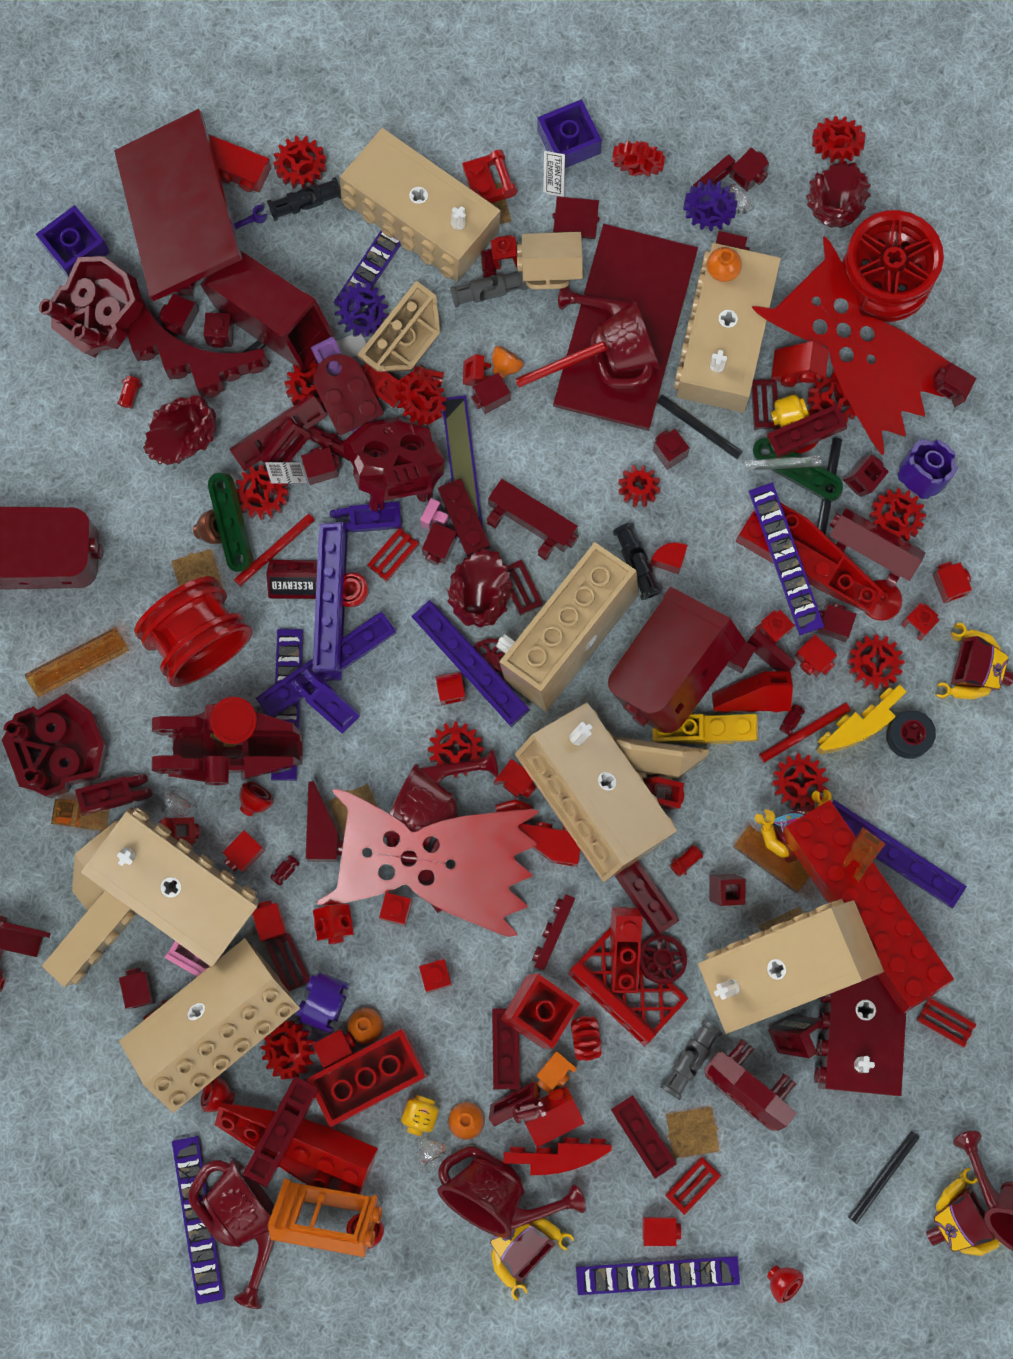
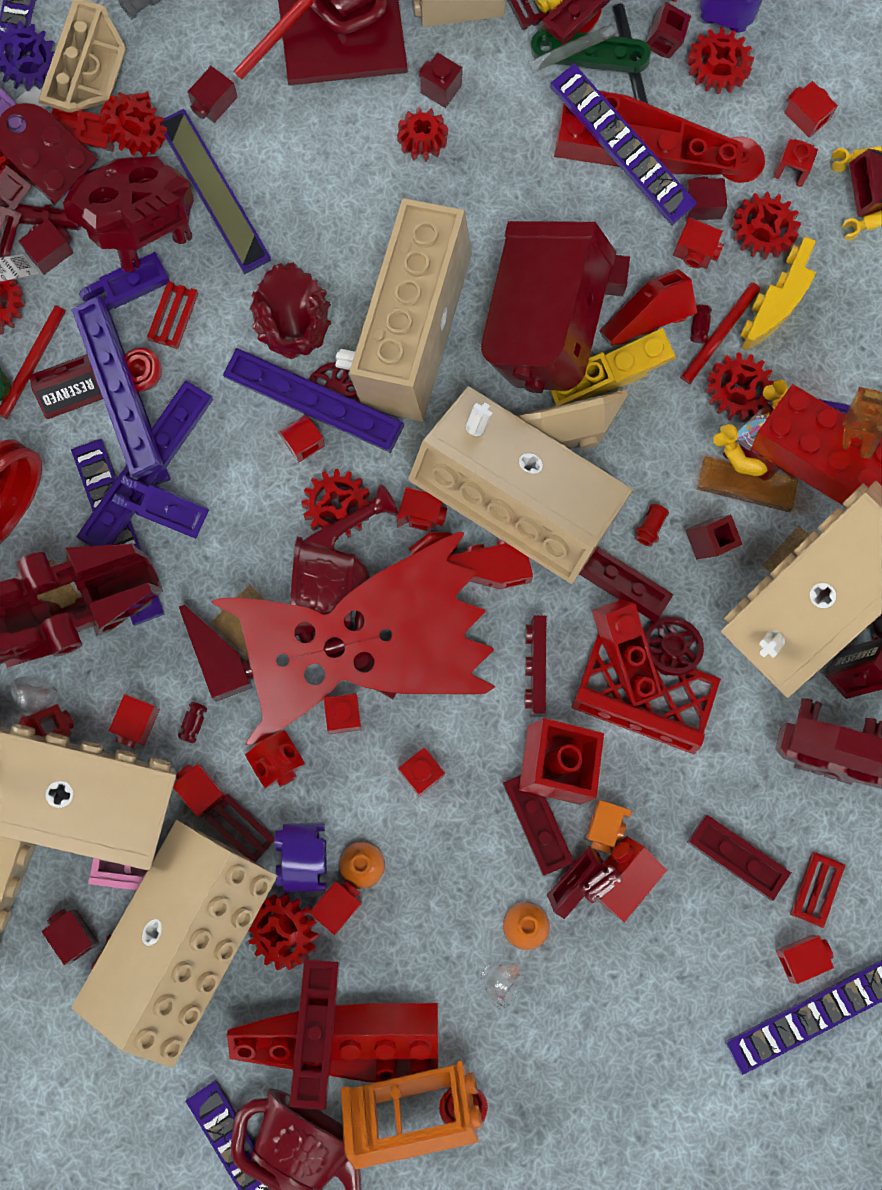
camera: 30 degrees left, 0 degrees up
(215, 1094) = (216, 1021): red brick -> none
(233, 720) = (57, 565): red piece -> none
(254, 798) = (122, 654): red brick -> none
(367, 1077) = (391, 925): red brick -> none
(420, 1115) = (470, 942): yellow head -> none
(433, 514) = (202, 252): bright pink tile -> none
(439, 544) = (221, 281): dark red brick -> none
(463, 517) = (236, 240): dark red plate -> none
(474, 370) = (182, 75): red tile -> none
(491, 1191) = (593, 999): dark red piece -> none
(505, 361) = (214, 53): orange brick -> none
(521, 1251) = (655, 1046): torso -> none
(529, 607) = (355, 313): dark red tile -> none
(533, 516) = (316, 211): dark red brick -> none
(569, 1156) = (664, 917): red slope -> none
(586, 1038) = (627, 771): red gear -> none
(639, 561) = (433, 194): black piece -> none
(668, 792) = (601, 453): red window -> none
(669, 557) = (490, 197): red brick -> none
(688, 1064) = (754, 751): dark grey piece -> none
(692, 1132) = (790, 829): clear orange piece -> none
(699, 427) = (462, 48): black bar -> none
(771, 652) = (647, 258): dark red tile -> none
(775, 626) = (639, 229): red window -> none
(876, 545) = (714, 96): dark red brick -> none
(918, 728) = (845, 278): black wheel -> none

